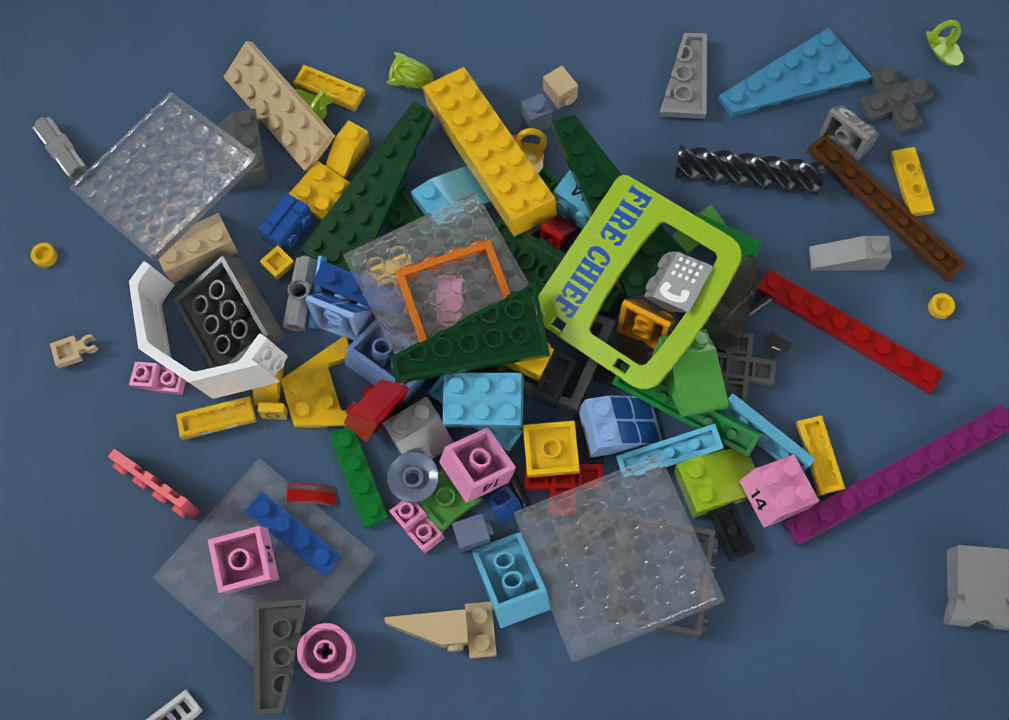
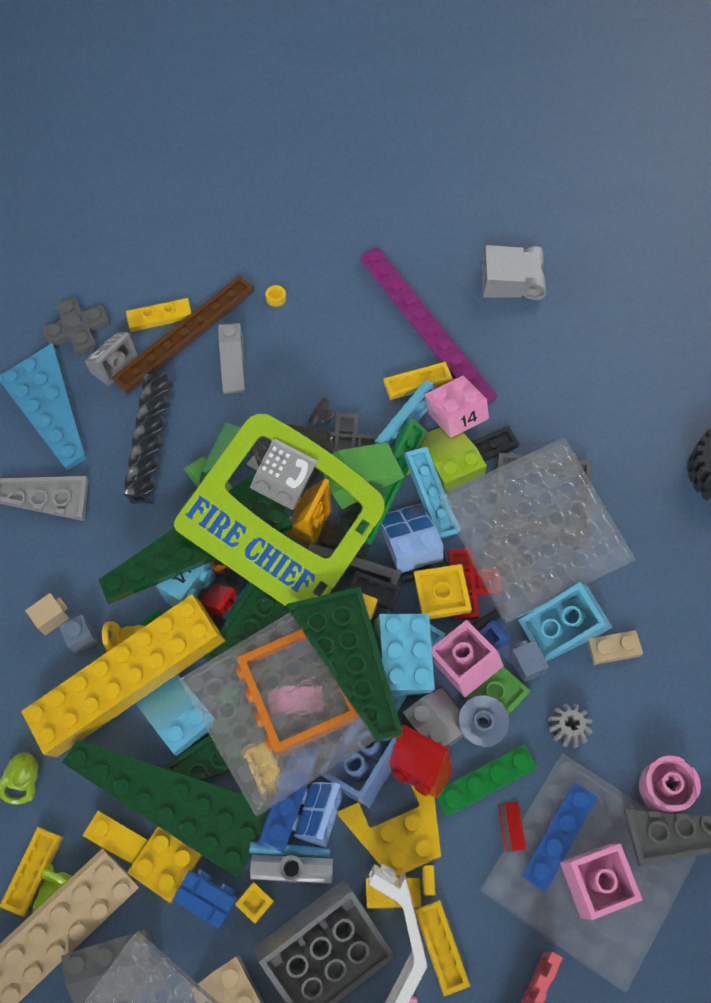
camera: 95 degrees left, 5 degrees down
(407, 570) = (575, 718): none -> light grey gear
(417, 525) = (527, 715): bright pink slope -> none
(441, 629) = (623, 680): tan slope -> none
(850, 331) = (305, 357): red plate -> none
(946, 47) = (27, 287): lime piece -> none

